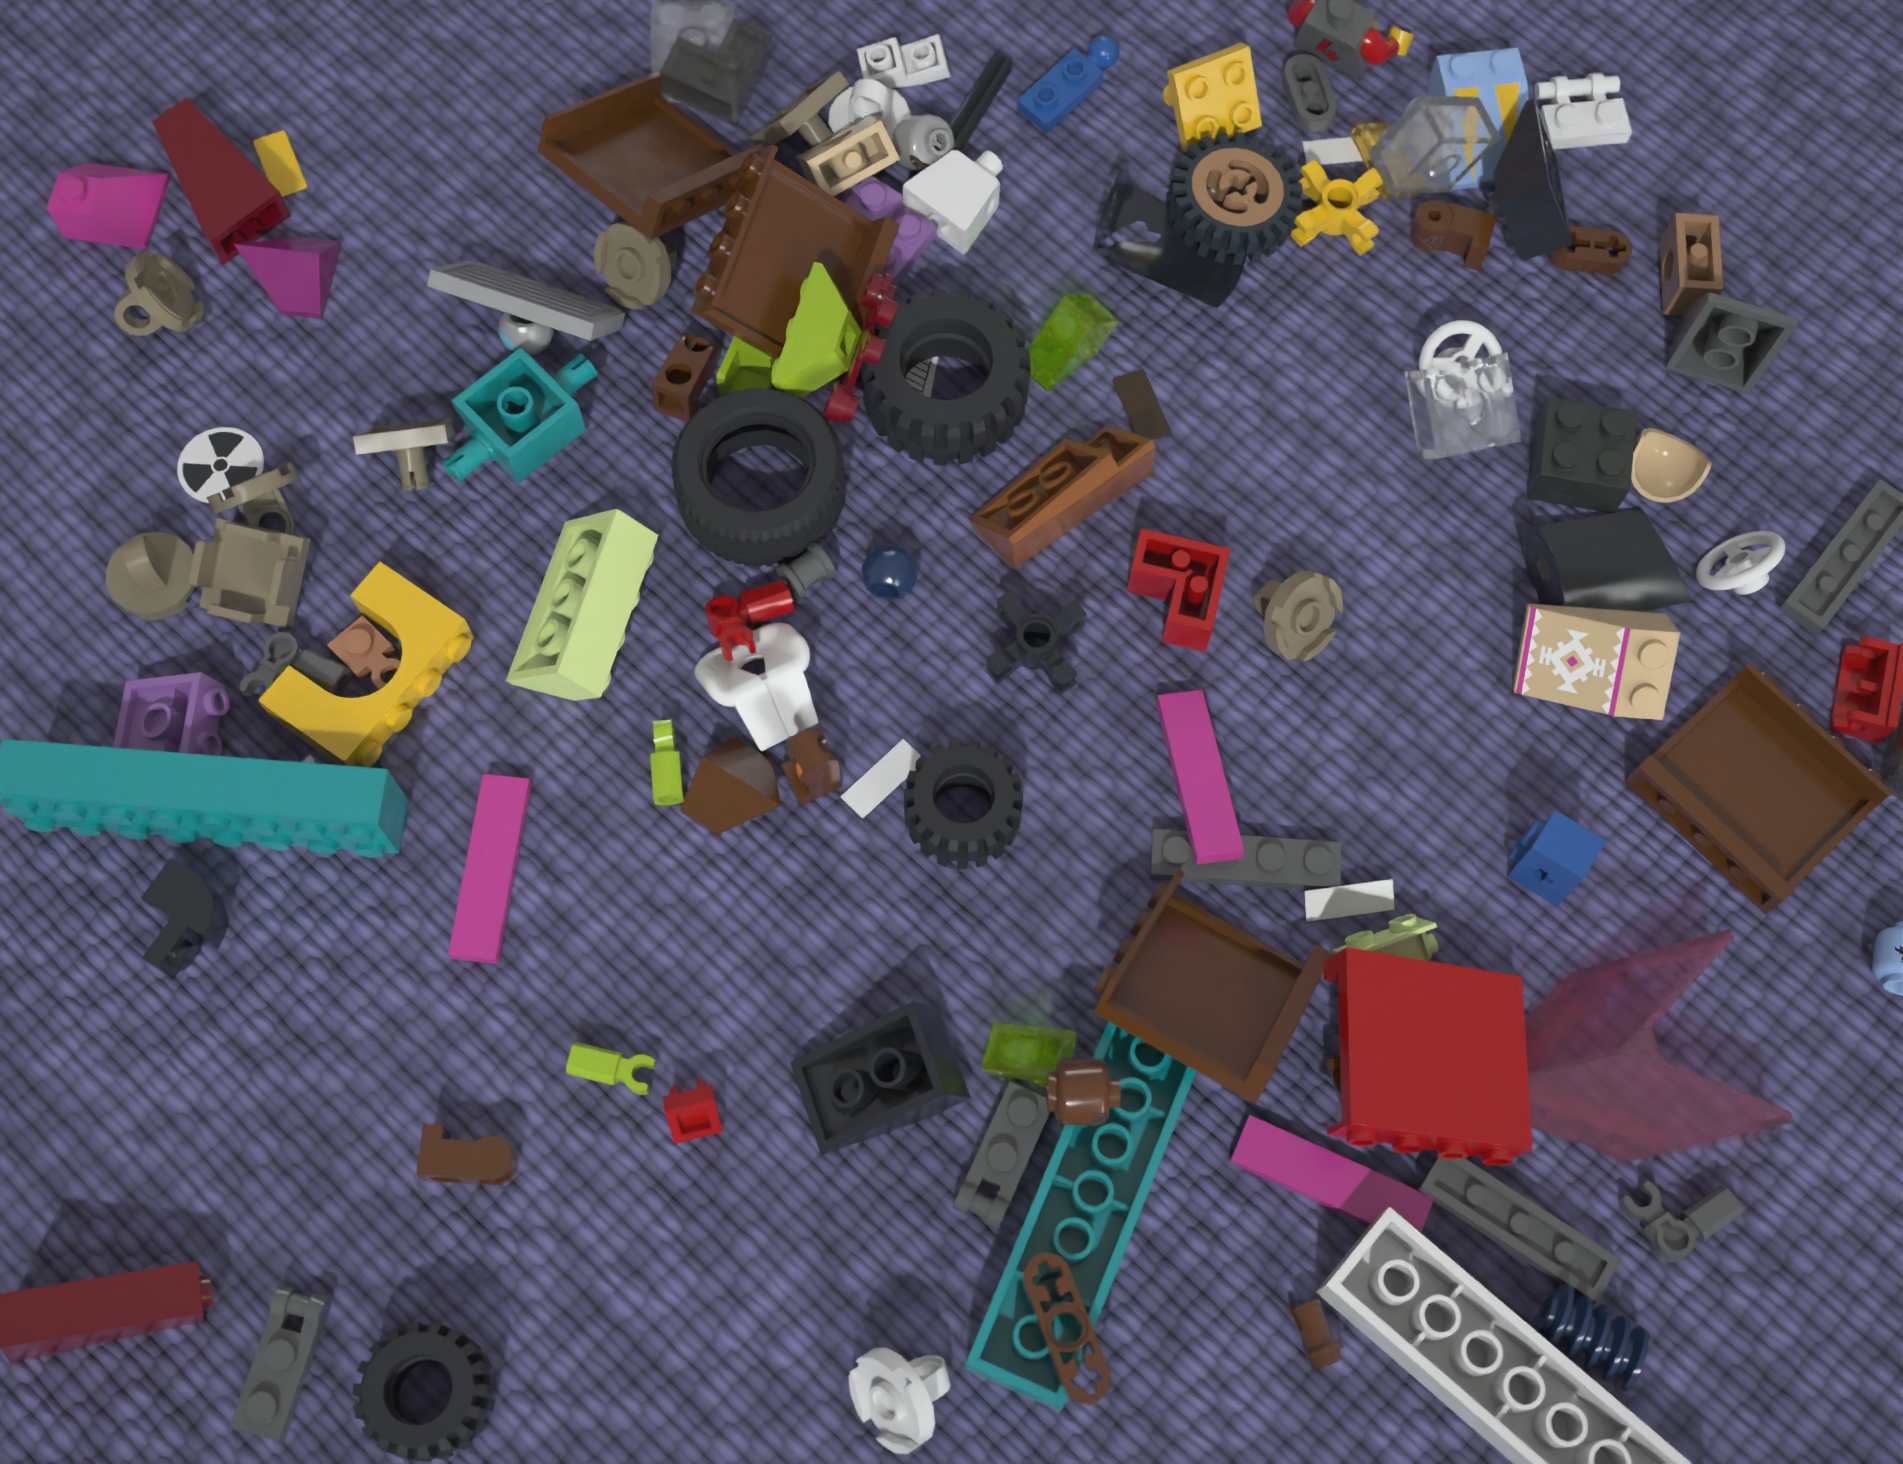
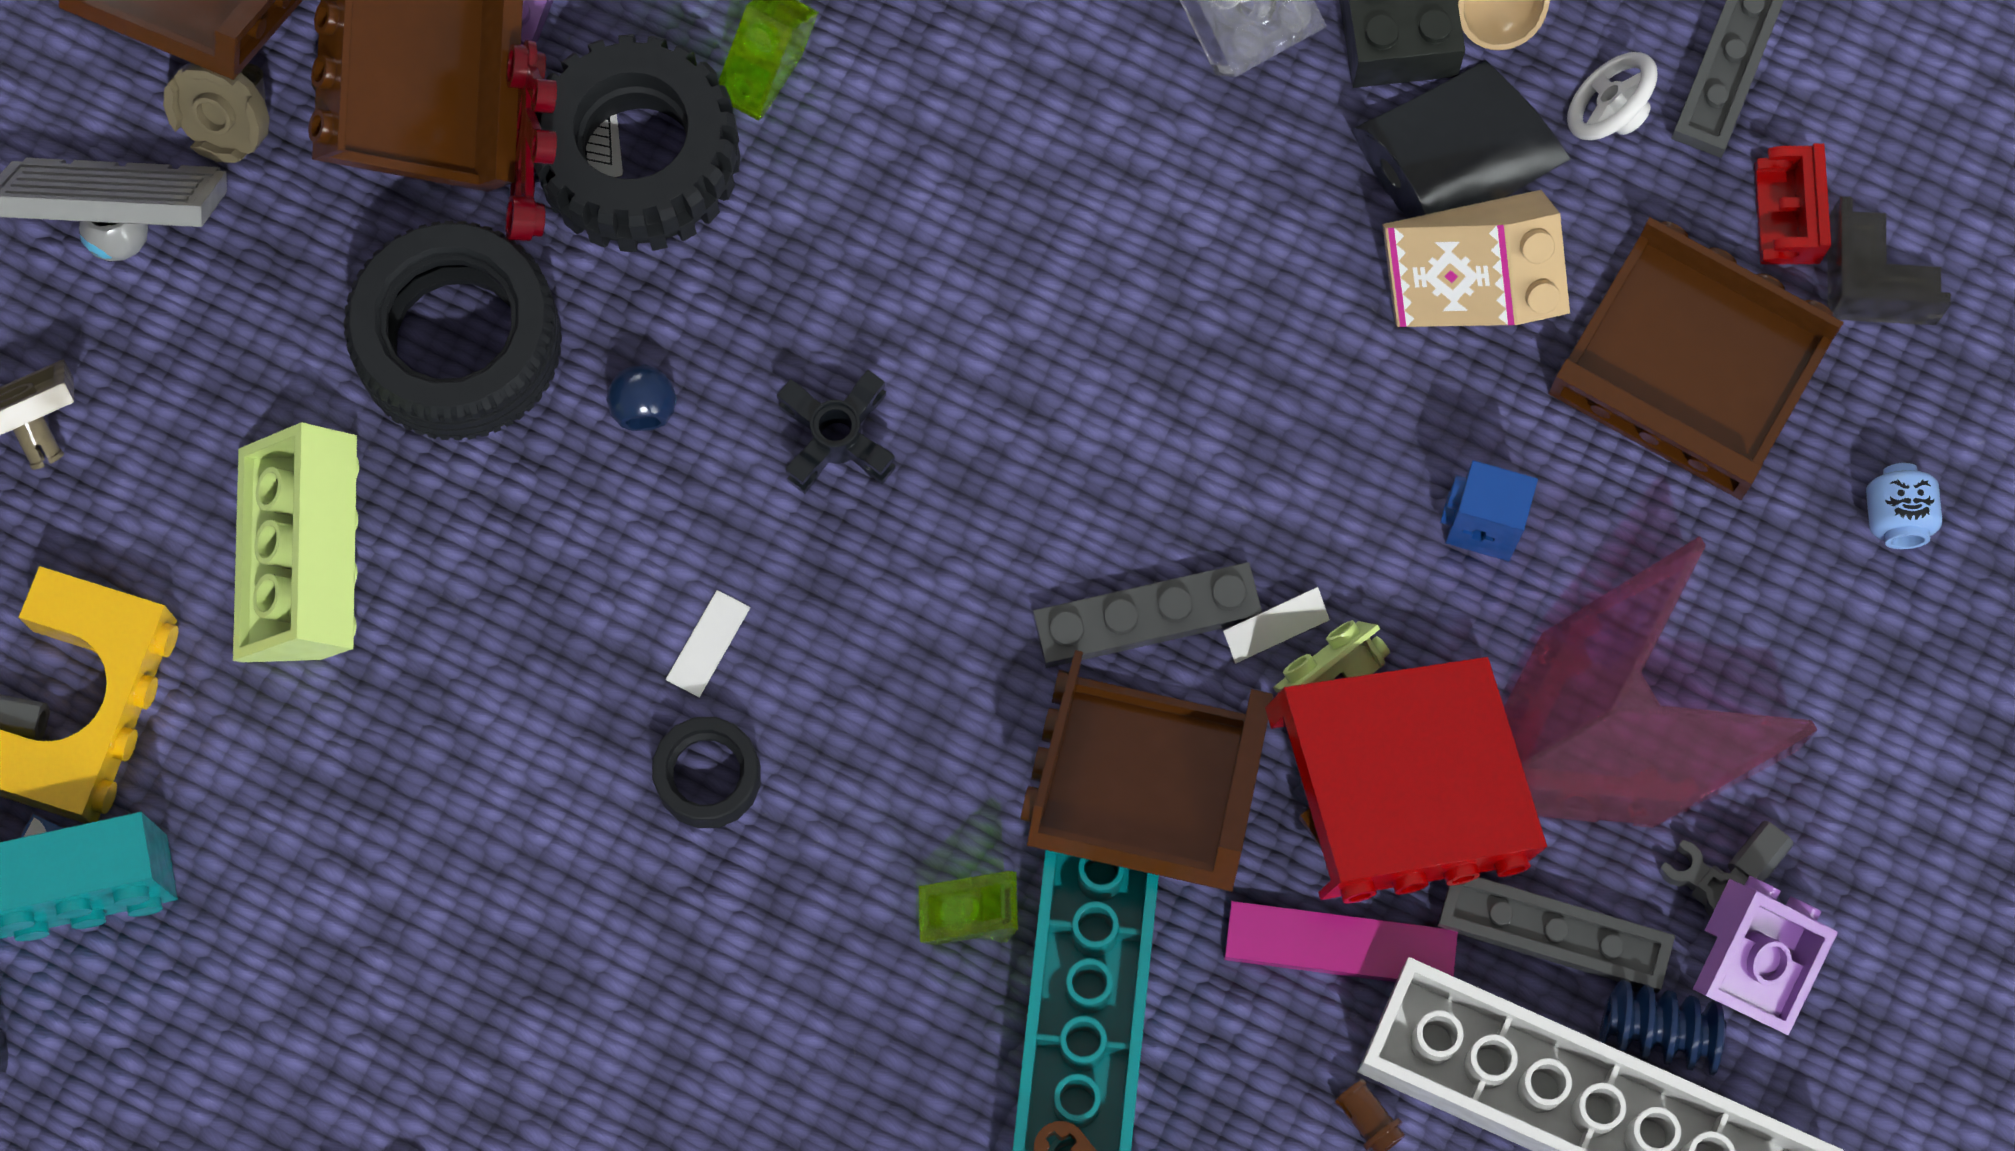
camera: 15 degrees left, 5 degrees up
(365, 652) = (57, 676): nougat plate -> none
(490, 869) = (290, 885): dark pink tile -> none
(519, 416) = (175, 331): teal brick -> none
(608, 1066) = (500, 1068): lime bar -> none
(666, 766) = (454, 705): lime bar -> none
(684, 376) = (323, 229): reddish brown leg -> none
(692, 1112) = (613, 1090): red tile -> none
(728, 616) = (470, 506): red bar -> none
(731, 787) = (539, 708): reddish brown slope -> none
(744, 369) = (394, 205): lime panel -> none
(769, 704) = (555, 594): white piece -> none
(806, 570) = (543, 426): dark grey bush -> none
(811, 766) = (622, 657): reddish brown leg -> none
(817, 338) = (471, 143): lime slope -> none
(848, 843) = (676, 742): none -> black tyre
(880, 1077) = (810, 986): black slope -> none
(971, 769) = (806, 604): black tyre -> none
(1004, 1153) = (974, 1026): dark grey plate -> none
(1063, 492) = (813, 240): dark orange slope -> none
(1082, 1092) = (1039, 936): reddish brown head -> none
(1141, 405) = (875, 105): dark brown sticker -> none
(1187, 576) = (983, 302): red brick -> none
(1199, 777) = (1068, 534): dark pink tile -> none
(1299, 614) = (1128, 310): dark tan tile -> none
(1696, 1298) = (1763, 953): none -> medium lavender plate

